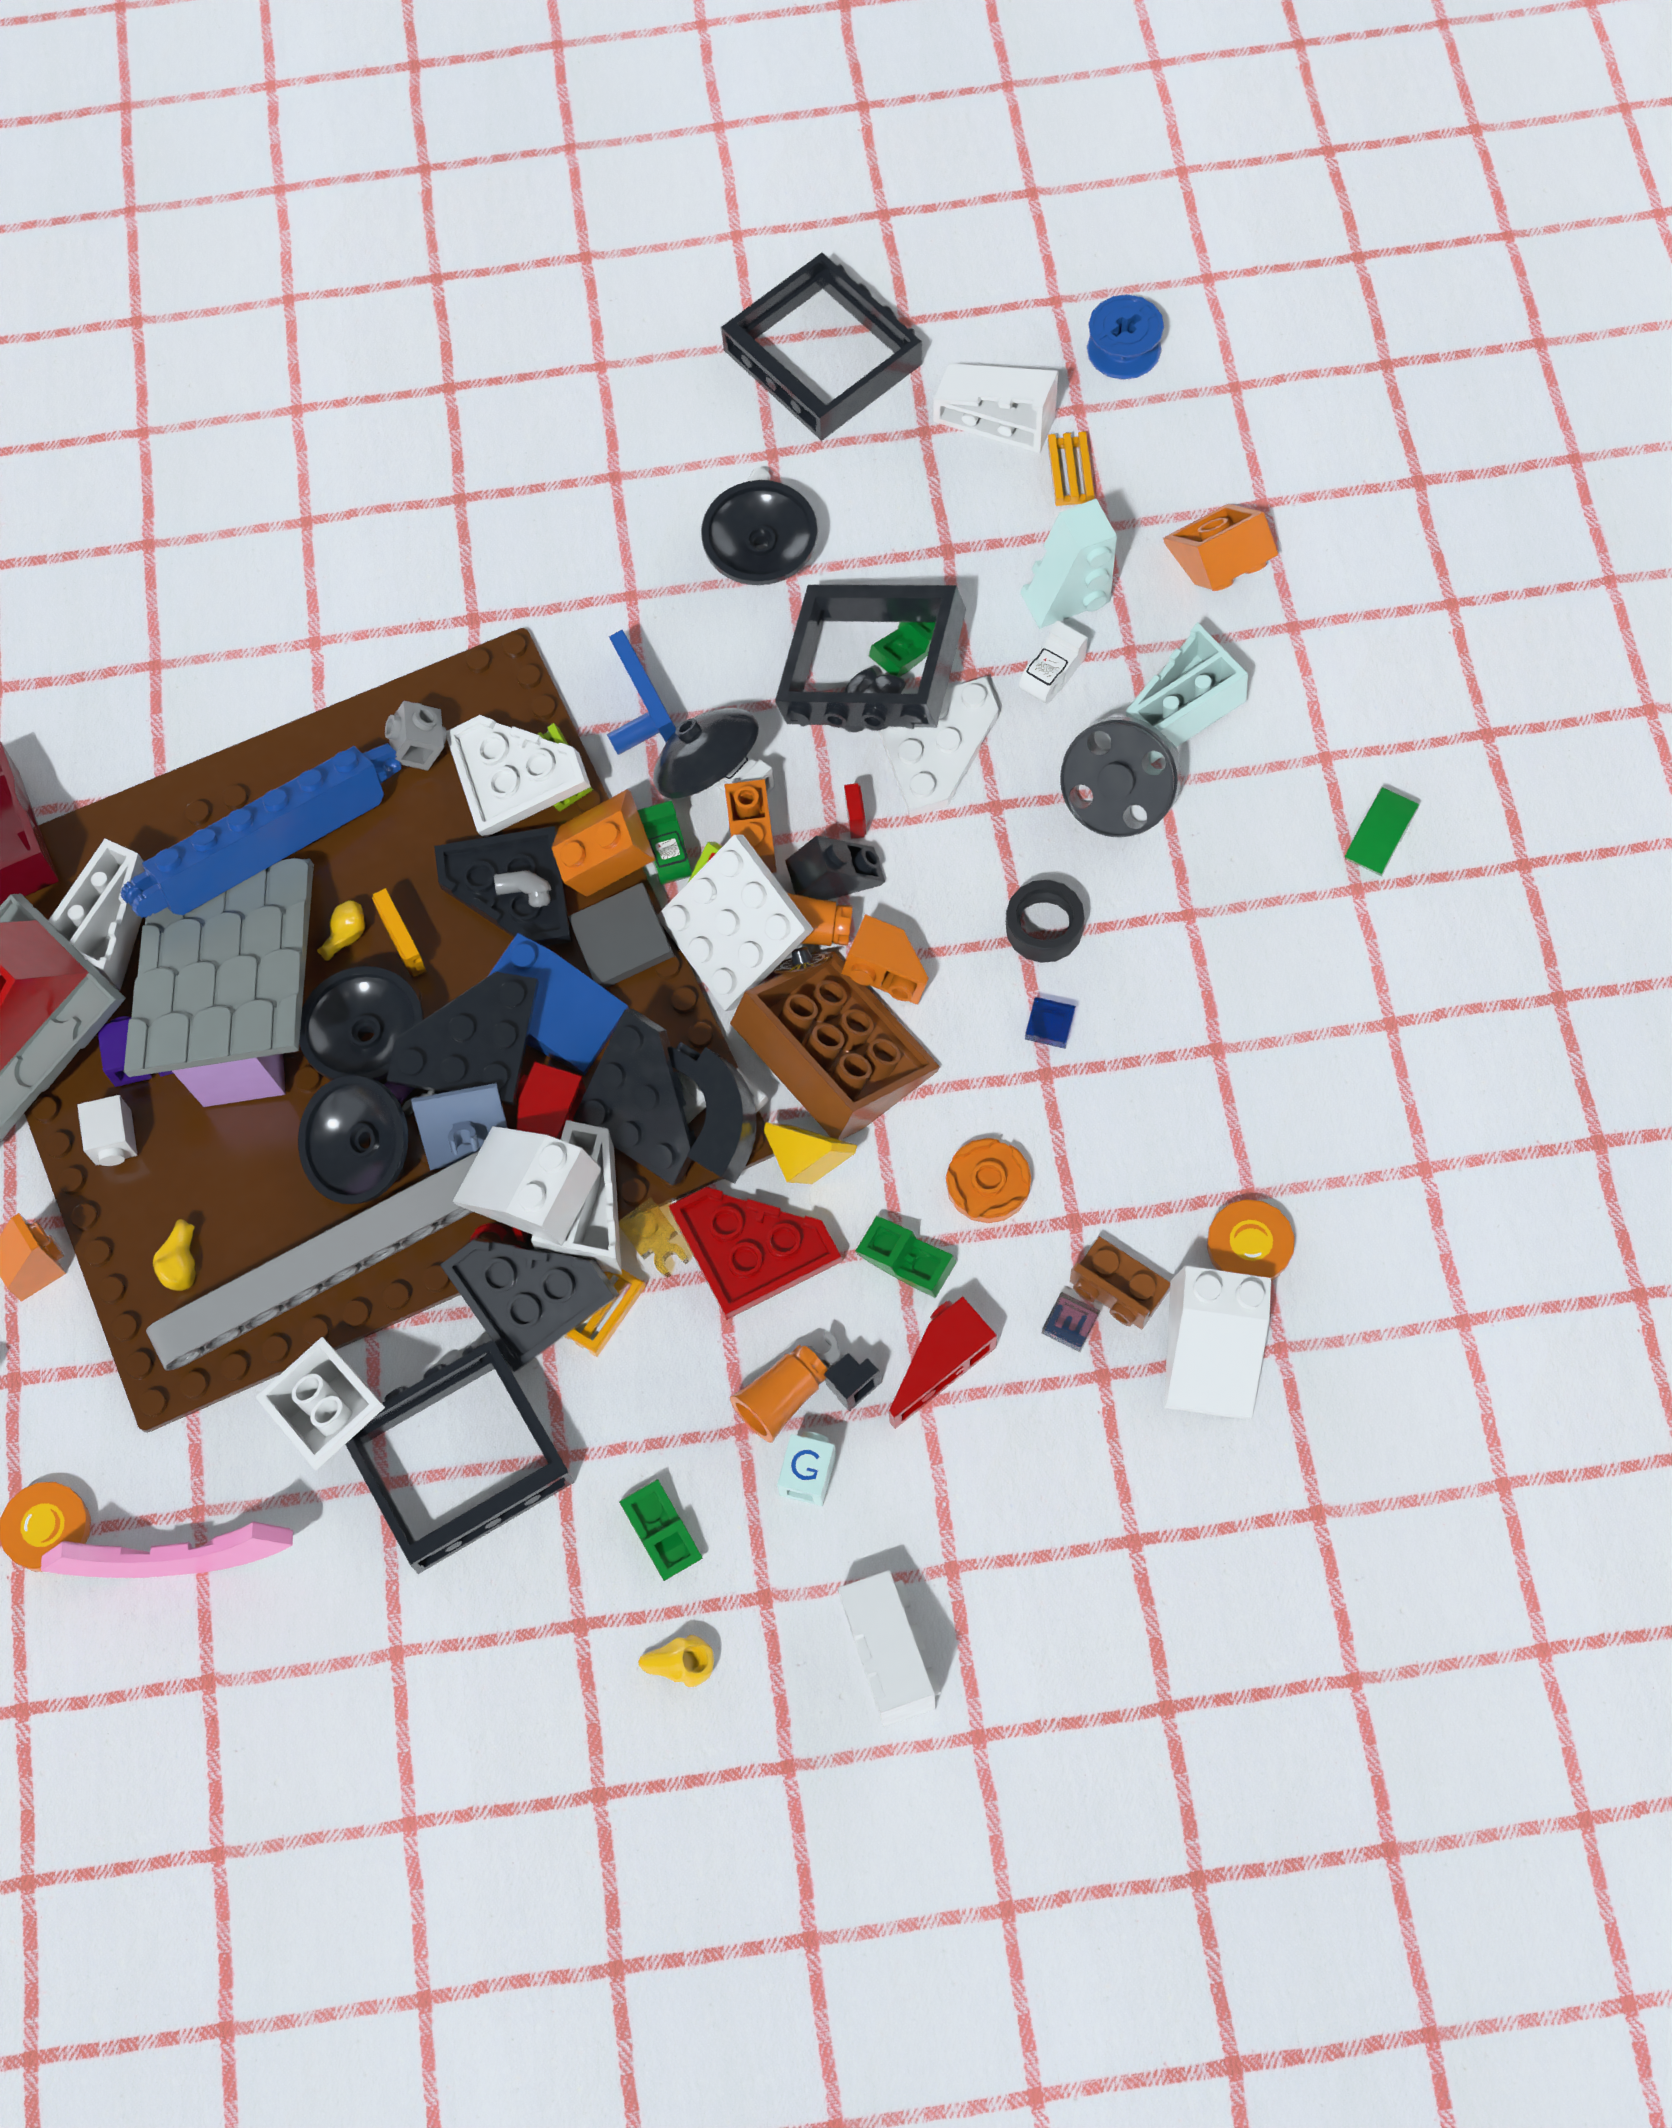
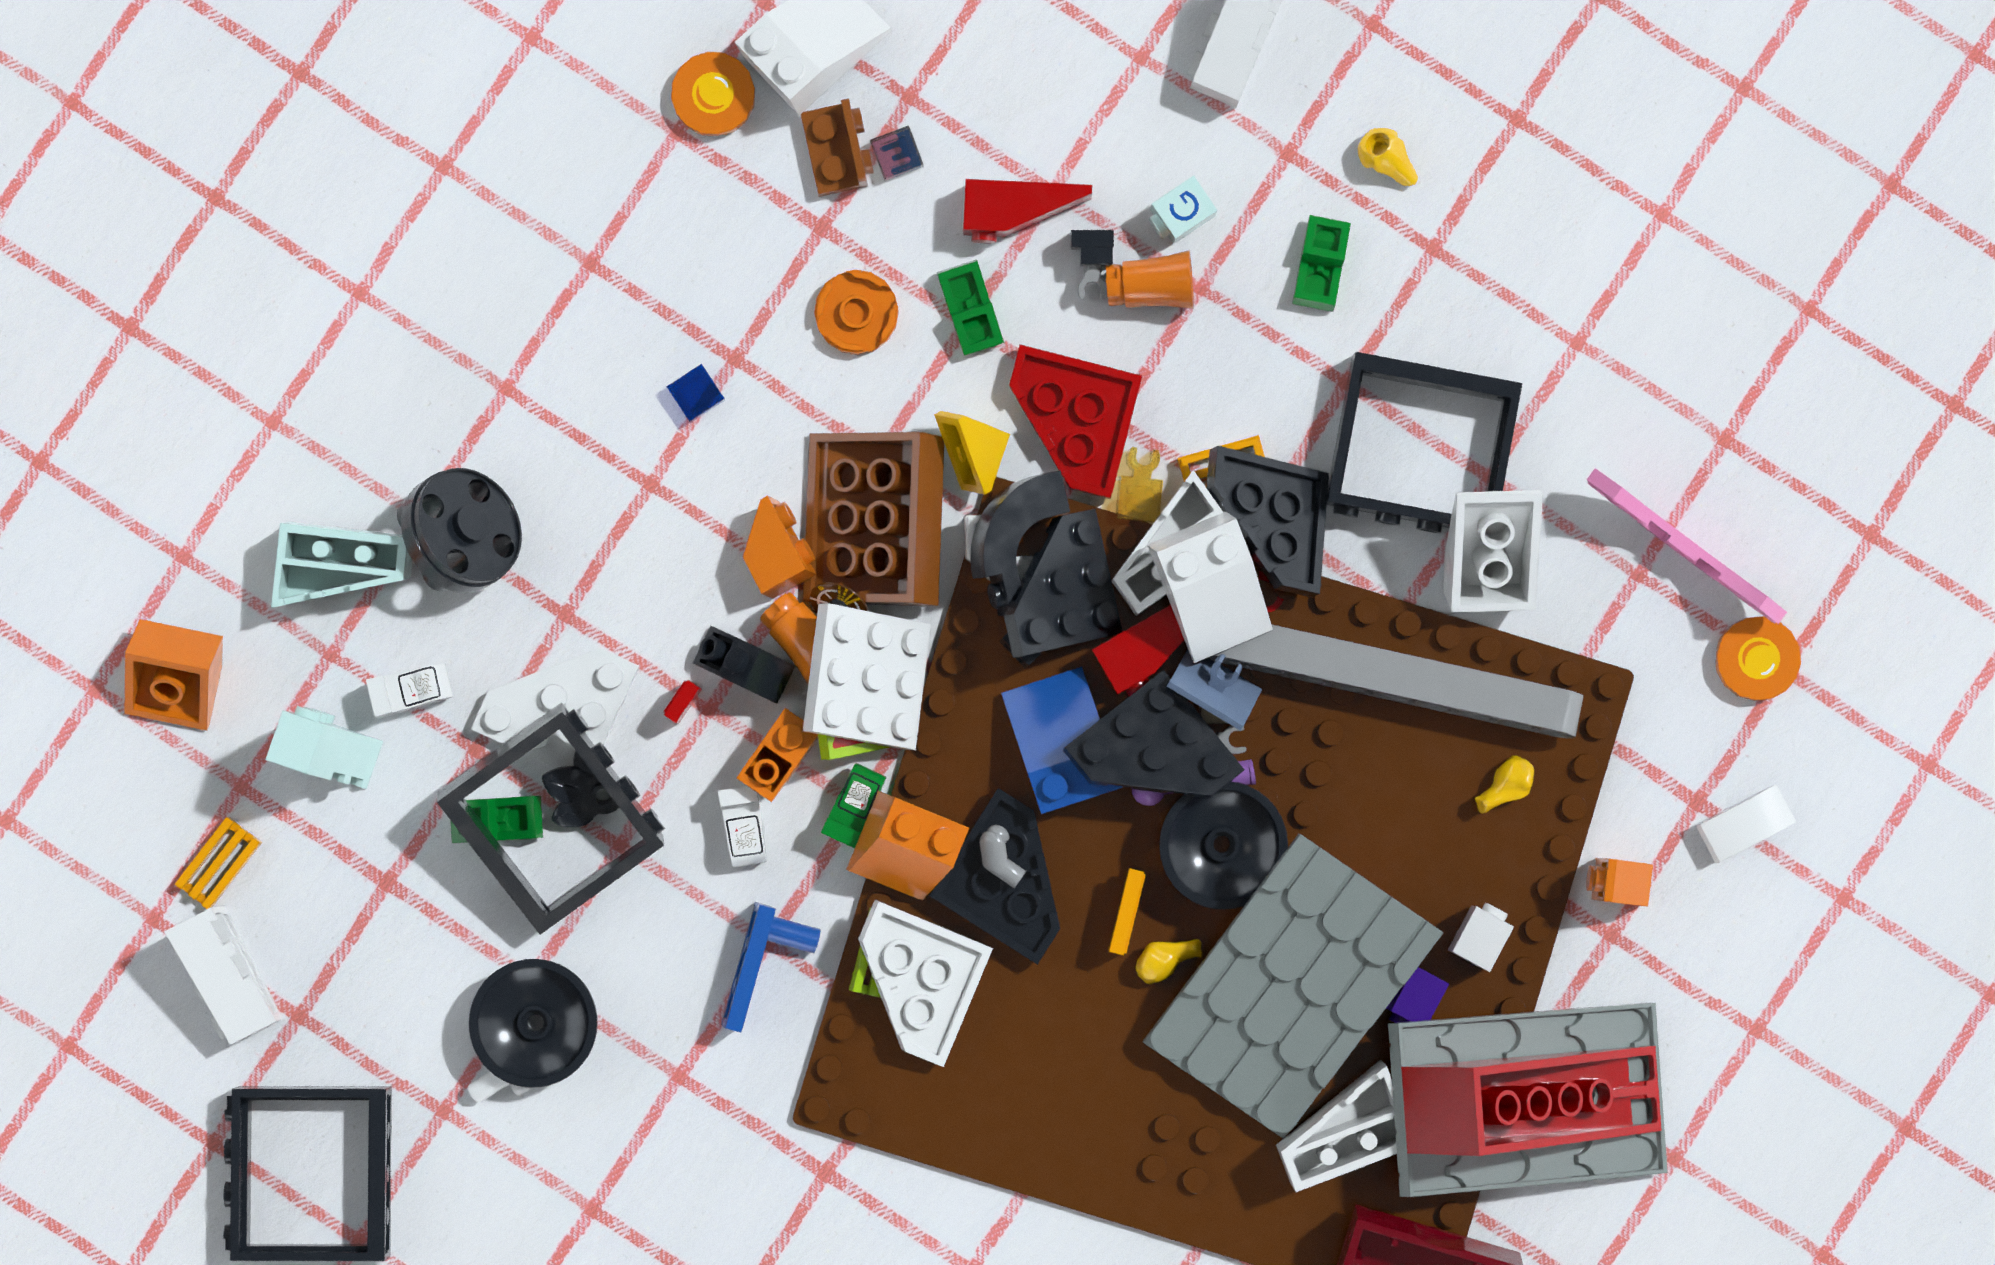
camera: 150 degrees left, 20 degrees up
(261, 832) = (1164, 1089): blue hinge -> none
(337, 1134) = (1322, 751): black dish -> none
(416, 734) = (970, 1081): light grey brick -> none
(621, 936) = (957, 754): dark grey tile -> none
(704, 751) = (758, 850): black dish -> none
(1044, 892) = (597, 458): black tyre -> none
(1125, 336) = (43, 965): blue piece -> none
(1381, 831) = (297, 316): green slope -> none

